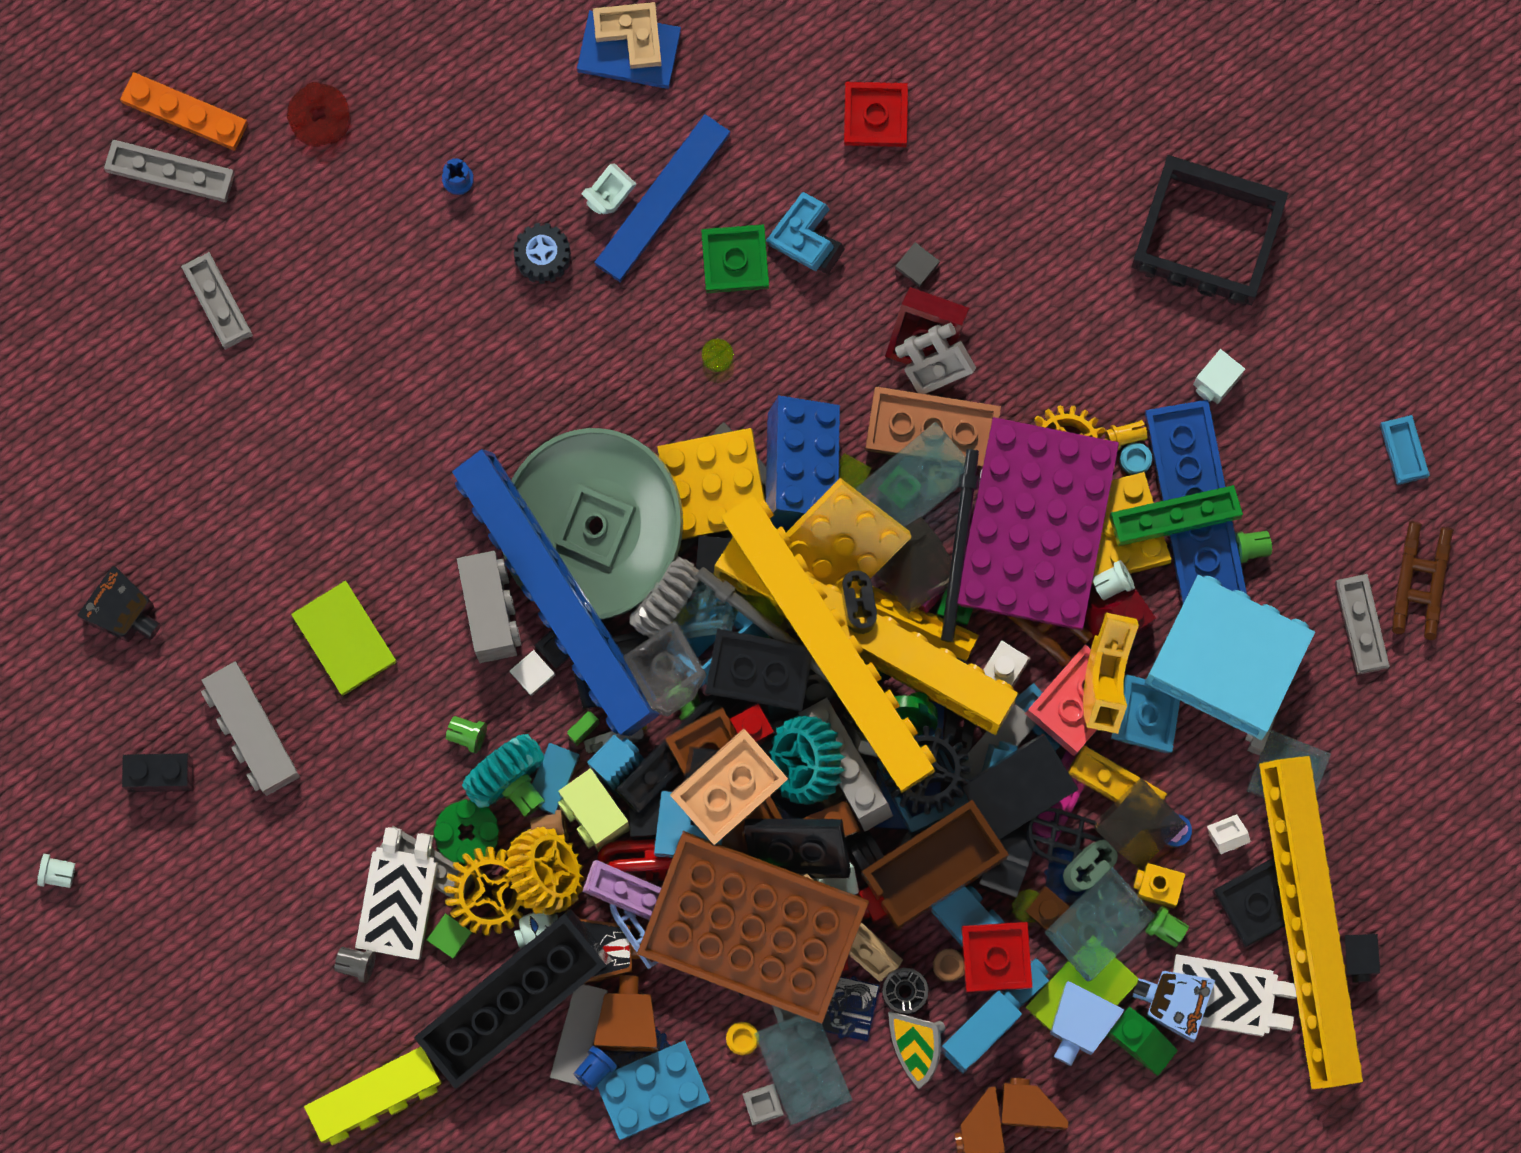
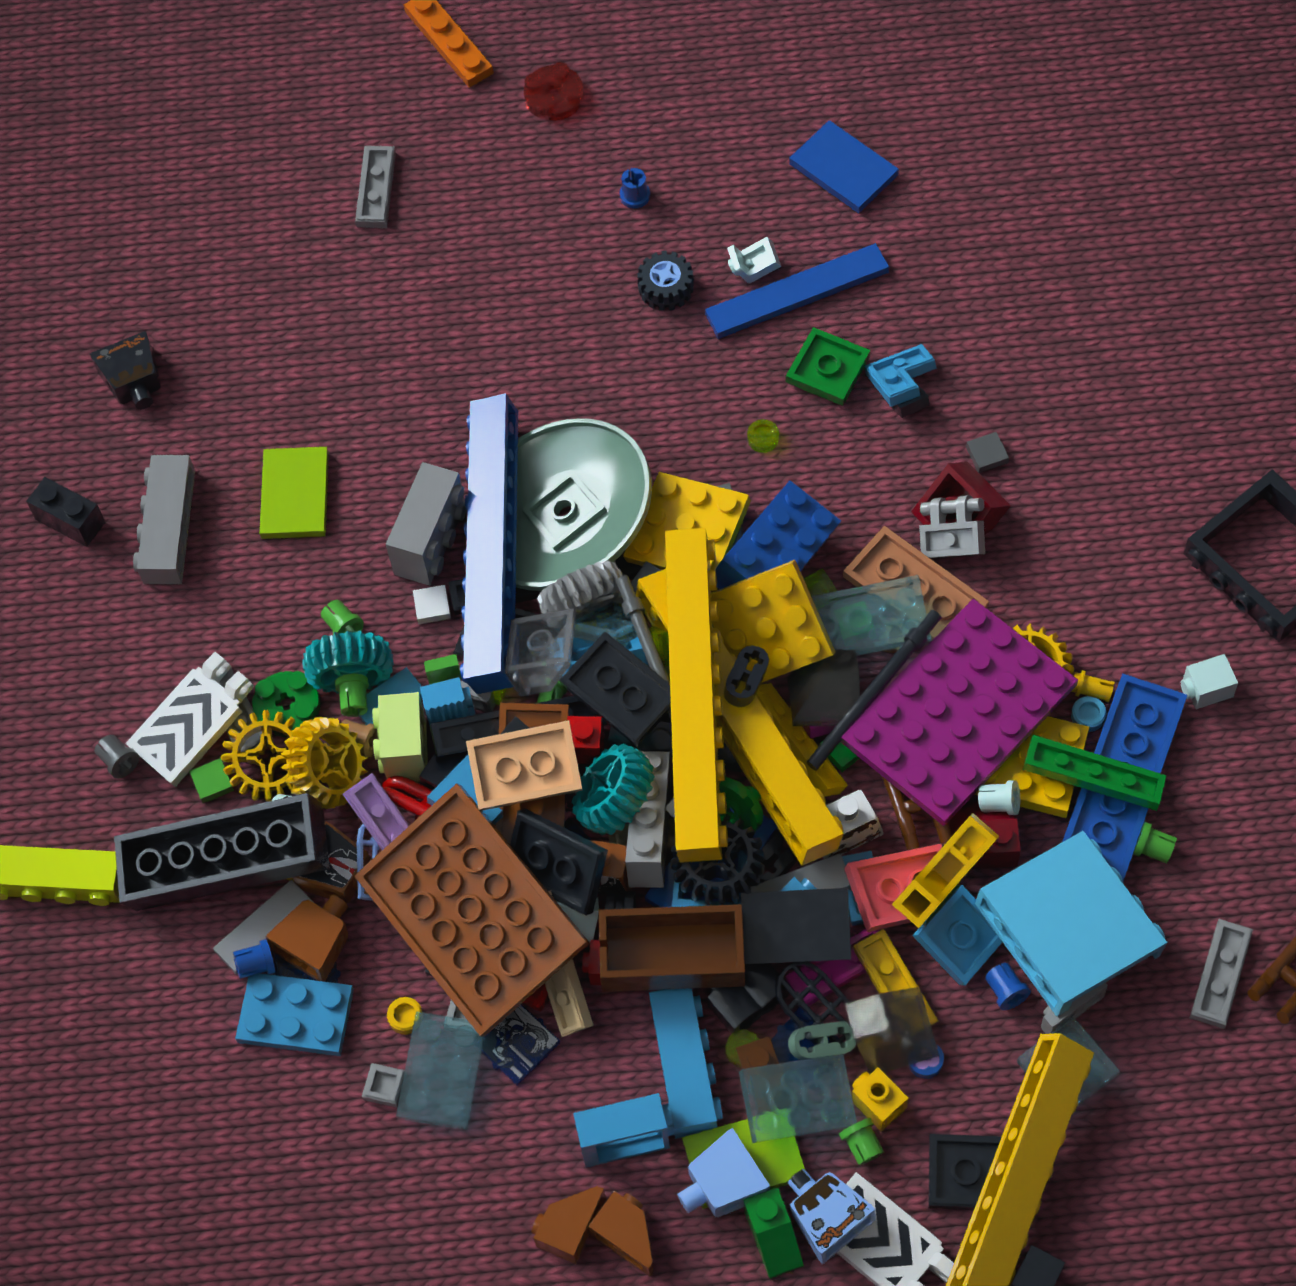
camera: 35 degrees right, 15 degrees down
(169, 170) = (405, 73): light grey plate -> none
(637, 25) = (857, 143): tan plate -> none
(875, 114) = (1025, 315): red plate -> none
(914, 982) = (573, 1044): wheel -> none
(916, 1045) = (555, 1110): shield -> none
(948, 965) = (635, 1060): medium nougat tile -> none
(996, 957) = (678, 1067): red plate -> none
(1204, 734) = (1007, 986): none -> blue bush
(1228, 834) = (974, 1090): white plate -> none

